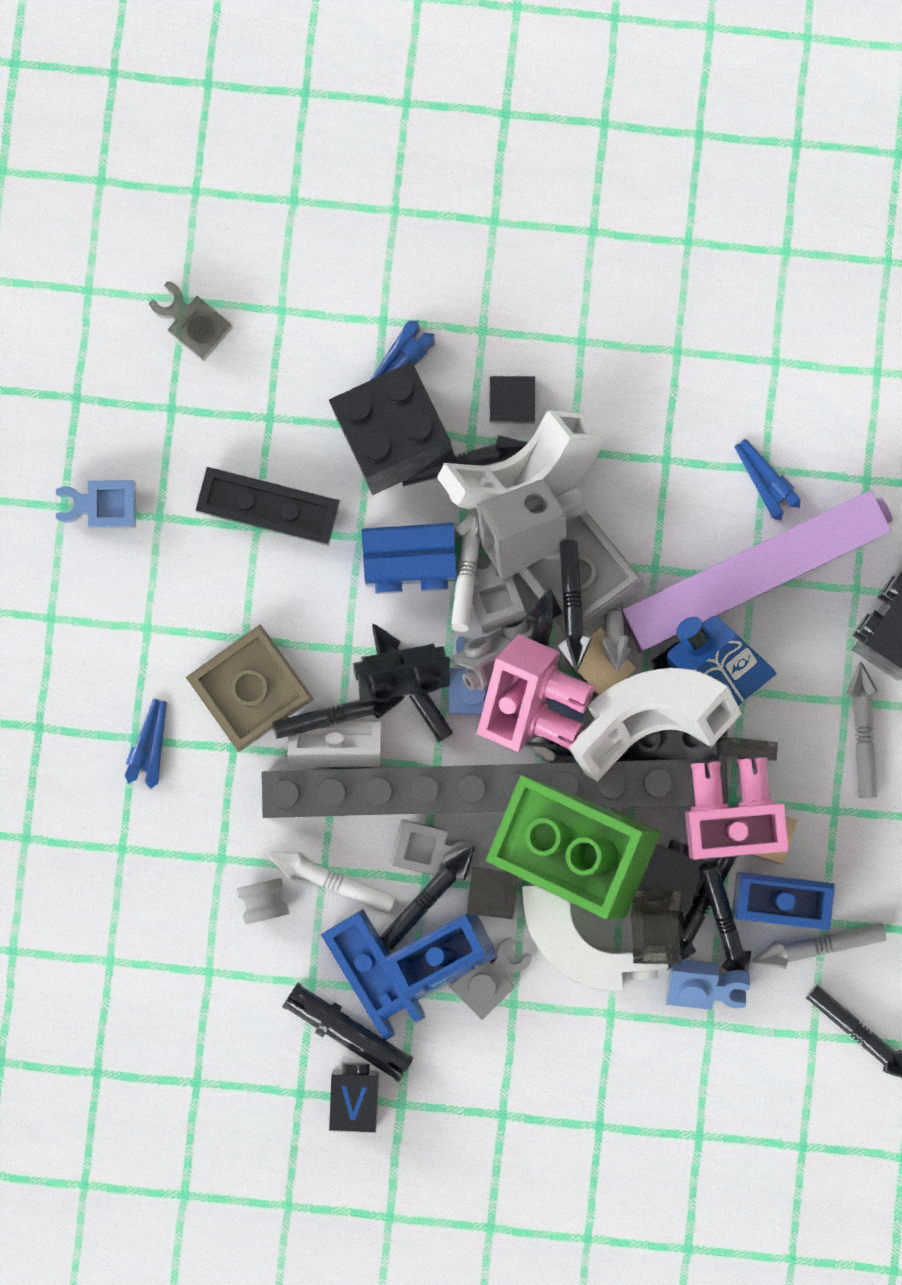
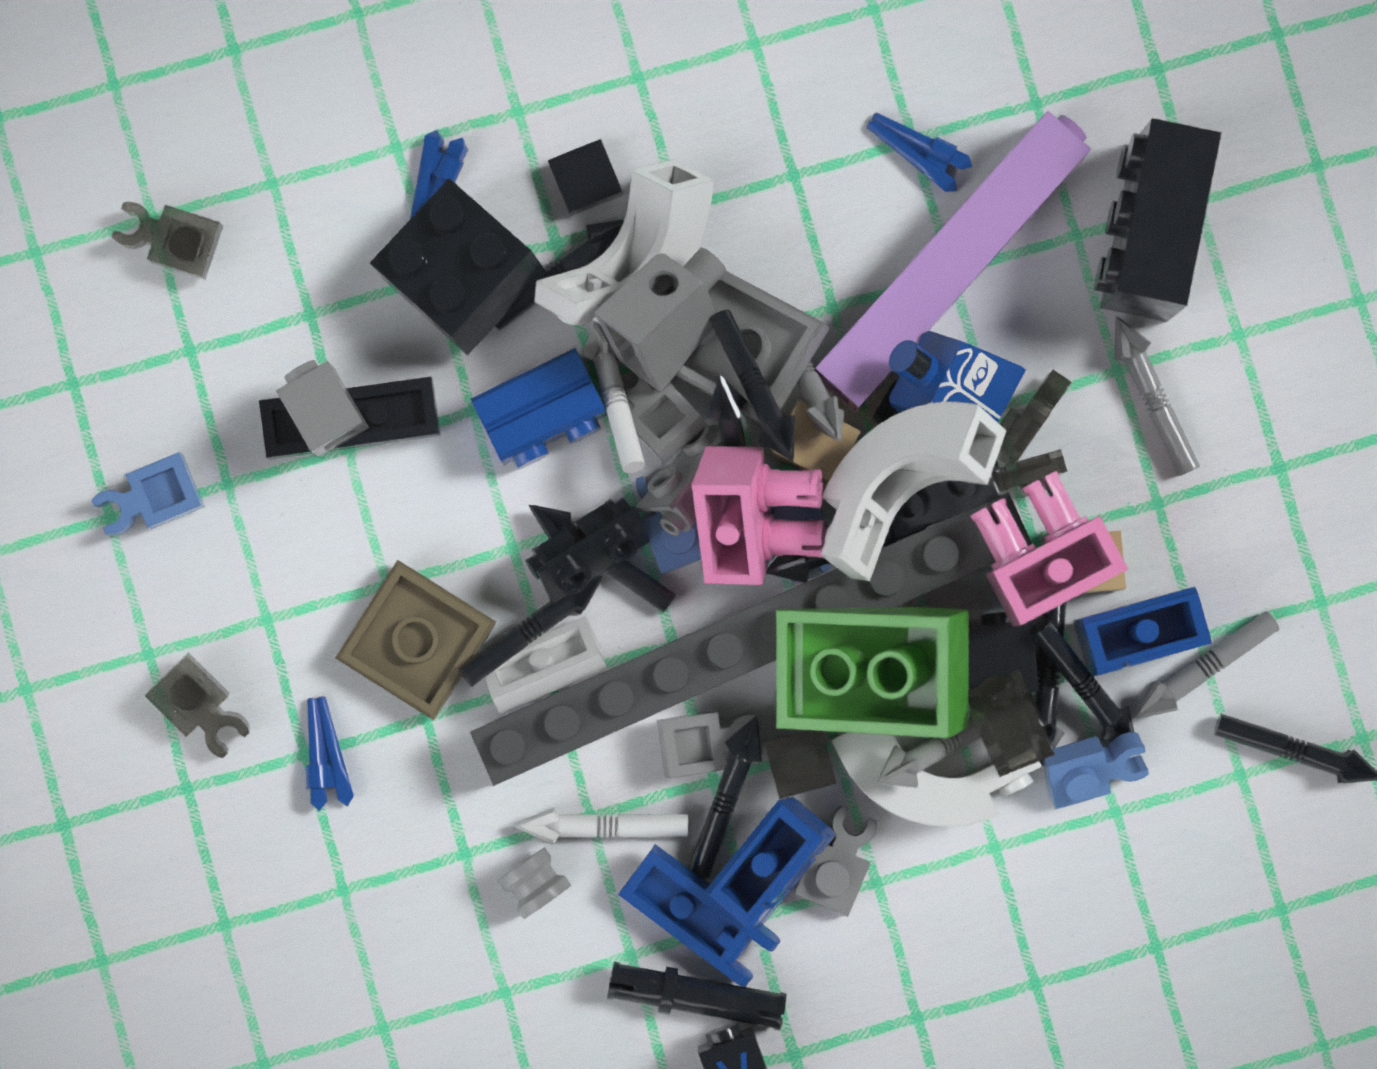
camera: 25 degrees left, 0 degrees up
(69, 664) = (192, 699): none -> clear smoke plate
(250, 490) = (321, 406): none -> light grey brick
(565, 927) = (903, 767): none -> light grey piece
(757, 714) = (1024, 425): none -> clear smoke plate

